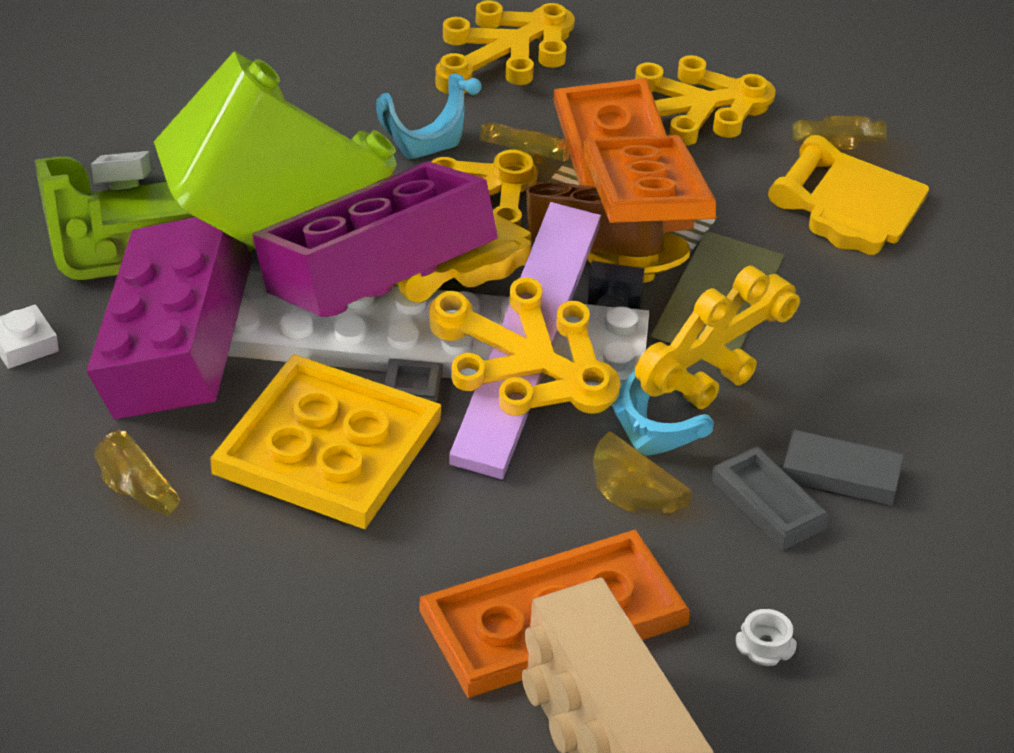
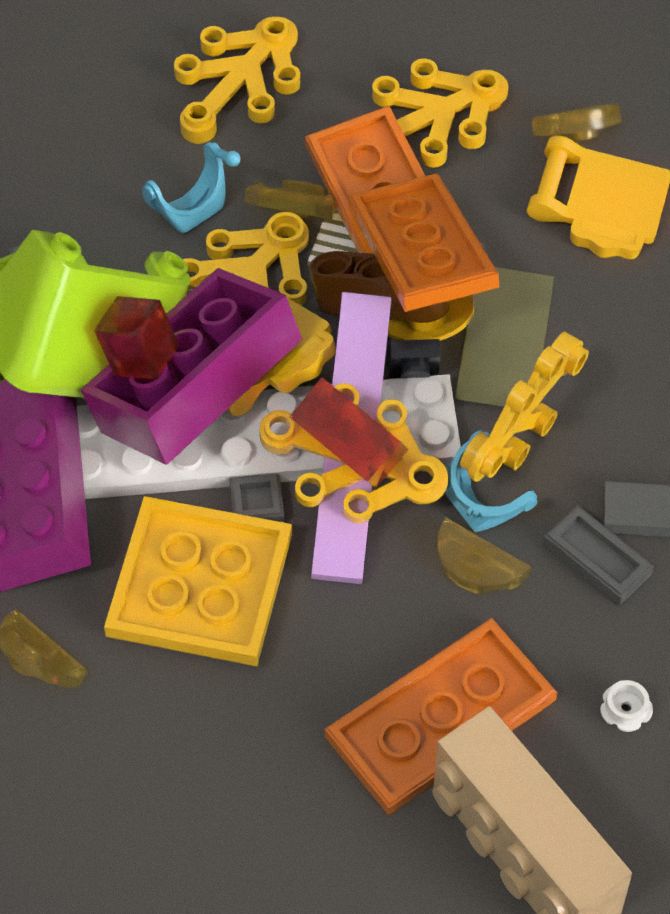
camera: 10 degrees left, 15 degrees up
(319, 185) = (136, 337): none -> clear red brick
(521, 315) = (349, 432): none -> clear red brick

